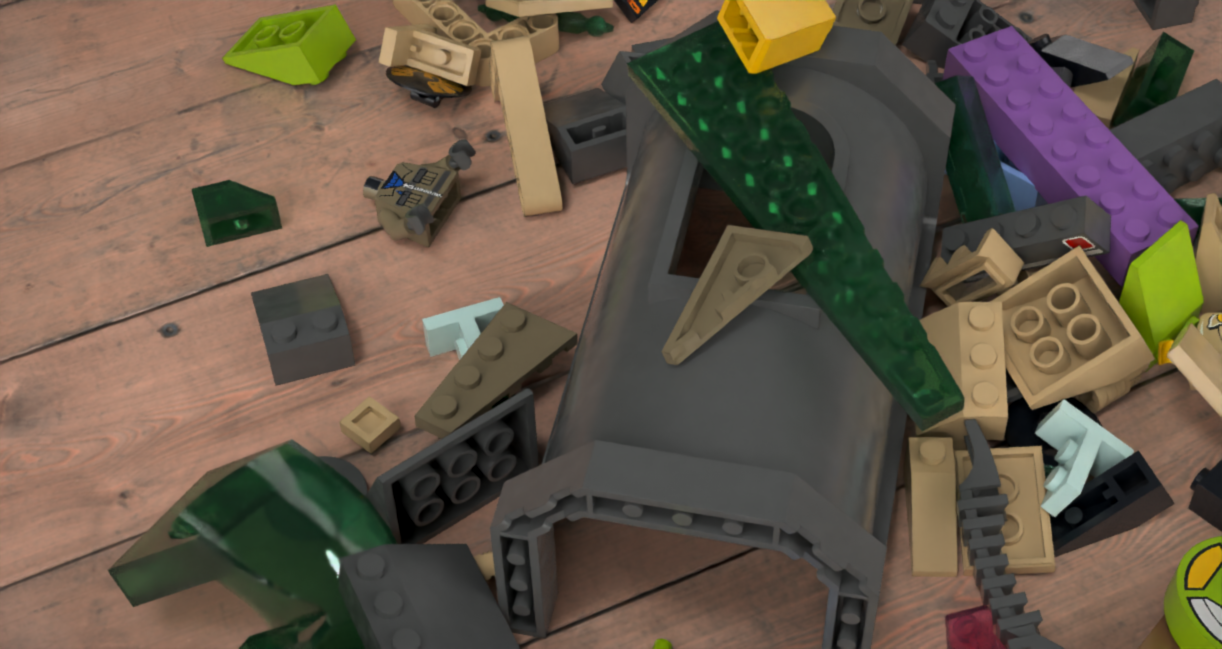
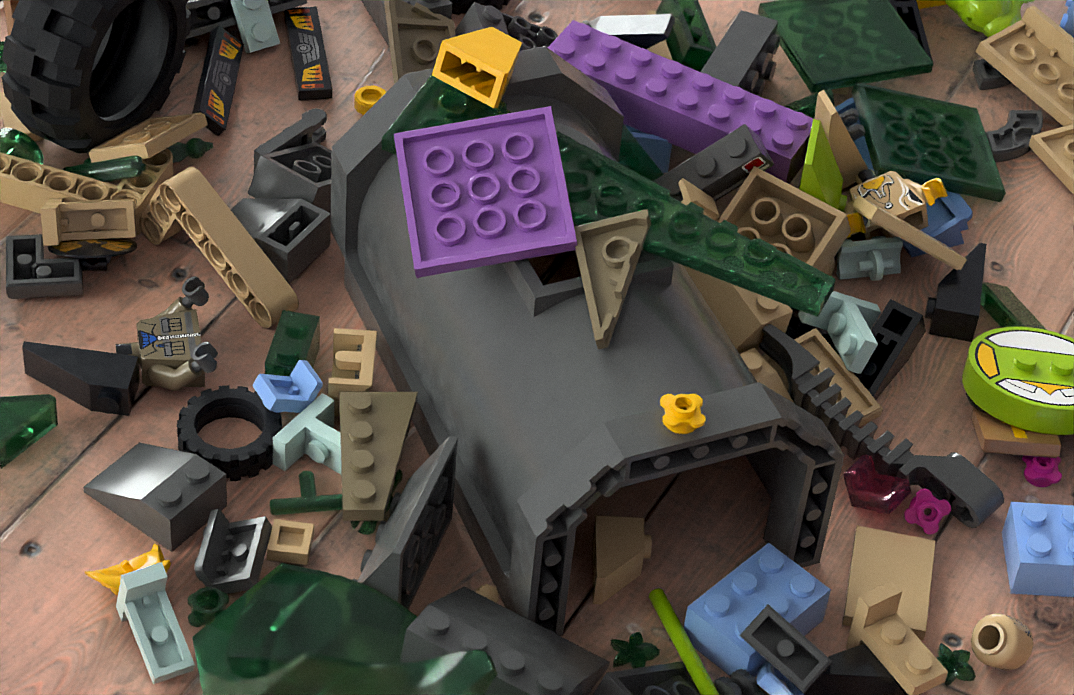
camera: 40 degrees left, 5 degrees down
(187, 439) = (154, 623): none -> light aqua bracket
(214, 390) = (111, 576): none -> yellow hat
(250, 443) = (206, 599): none -> clear green plate
(308, 408) = (232, 552): none -> dark grey bracket
(336, 201) = (88, 377): none -> black slope
(364, 86) = (35, 277): none -> dark grey brick
(396, 269) = (233, 404): none -> black tyre
(413, 394) = (308, 501): none -> clear green piece
(467, 281) = (289, 392): none -> light blue bracket
(488, 16) = (111, 169): none -> clear green axle
(513, 250) = (294, 340): none -> clear green brick
(555, 286) = (351, 362): none -> tan window
(649, 585) = (617, 554): none -> tan slope
(673, 154) = (484, 192): none -> medium lavender plate
(673, 478) = (682, 412): none -> yellow plate
(1171, 397) = (869, 258): none -> light aqua hips

